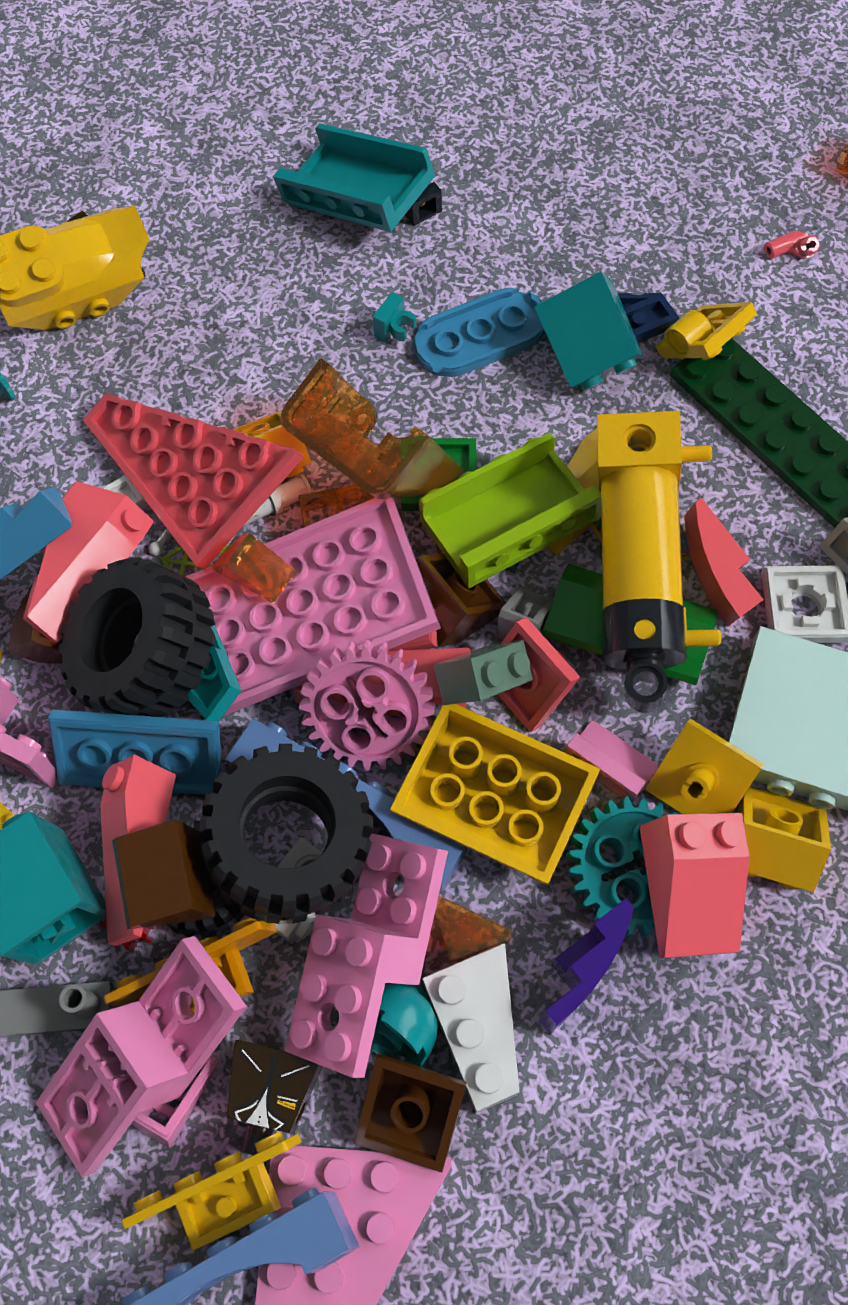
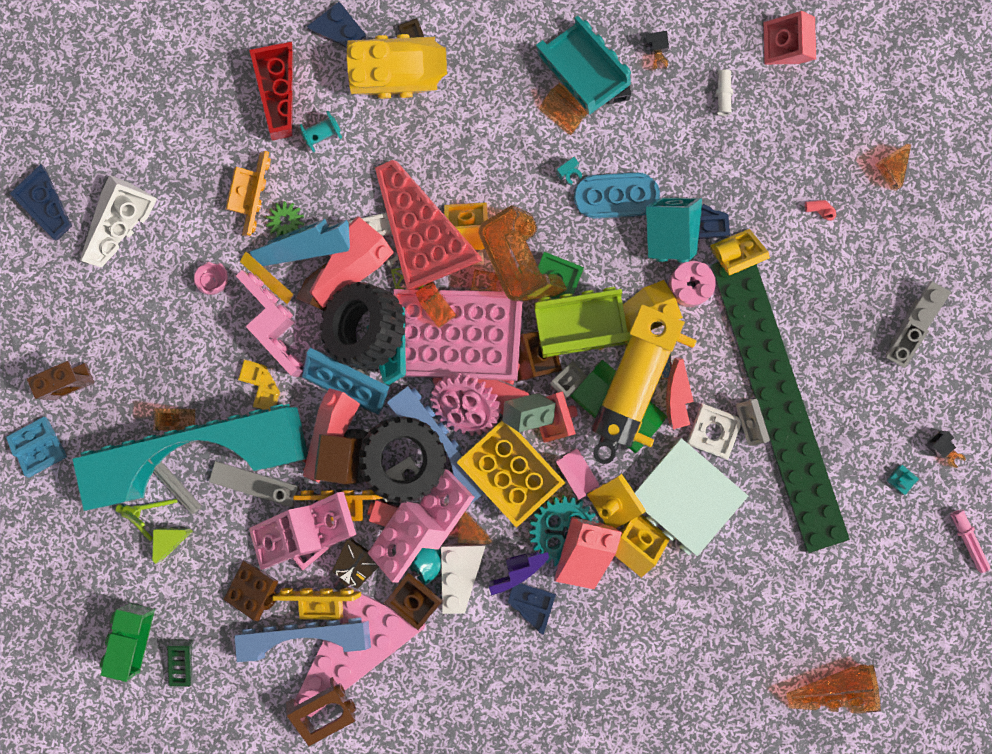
camera: 25 degrees right, 20 degrees up
(76, 1231) = (251, 591): none -> reddish brown plate
(283, 965) = (381, 512): none -> coral brick
(349, 249) = (563, 109): none -> clear orange panel
(452, 129) = (658, 45): none -> black piece
(574, 154) = (724, 92): none -> white pin
(633, 64) = (790, 39): none -> coral slope
(640, 1029) = (533, 604): none -> dark blue wing
(658, 387) = (697, 273): none -> bright pink brick

